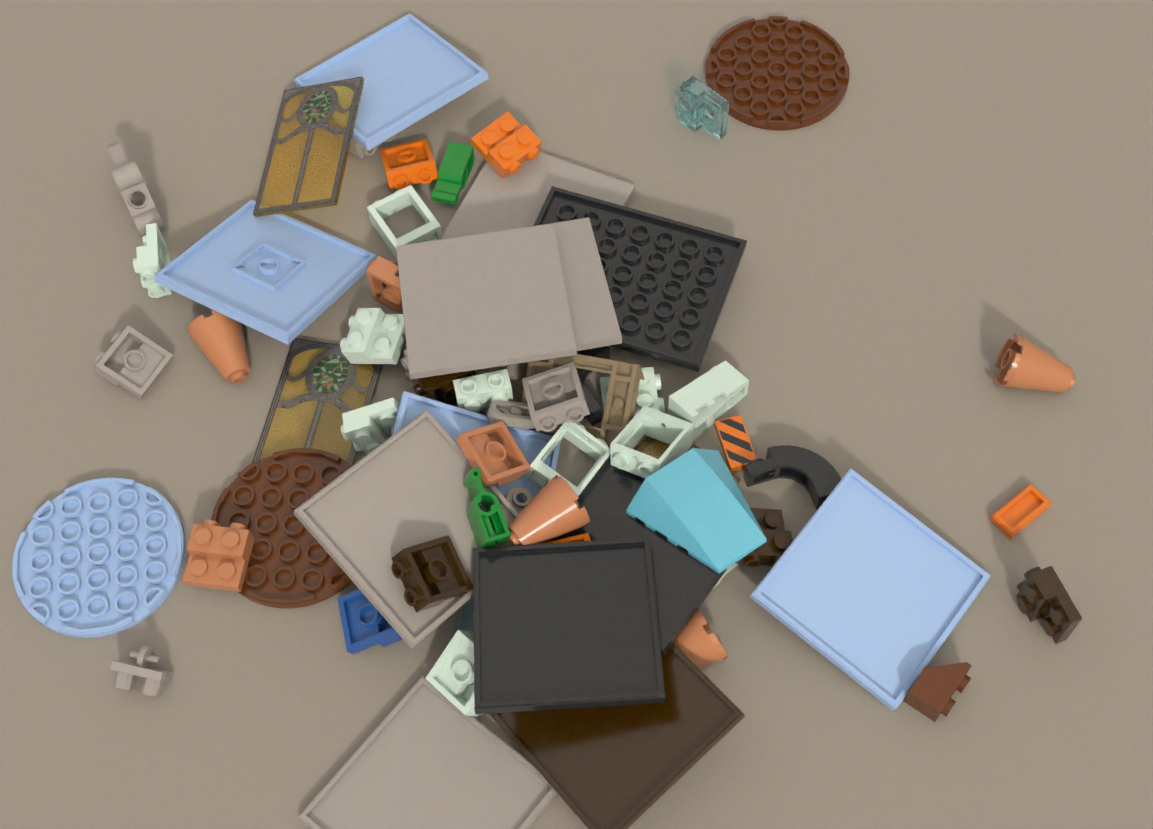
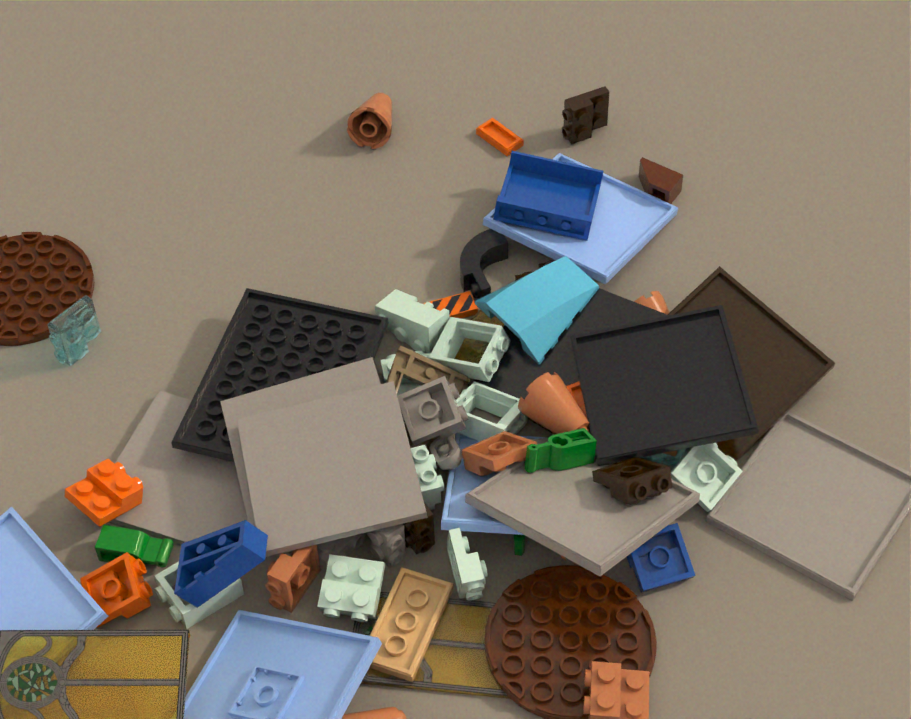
camera: 95 degrees left, 10 degrees down
(334, 383) = (409, 622): none -> tan tile
(394, 214) = (218, 560): none -> blue wedge
(890, 545) = (549, 195): none -> blue panel

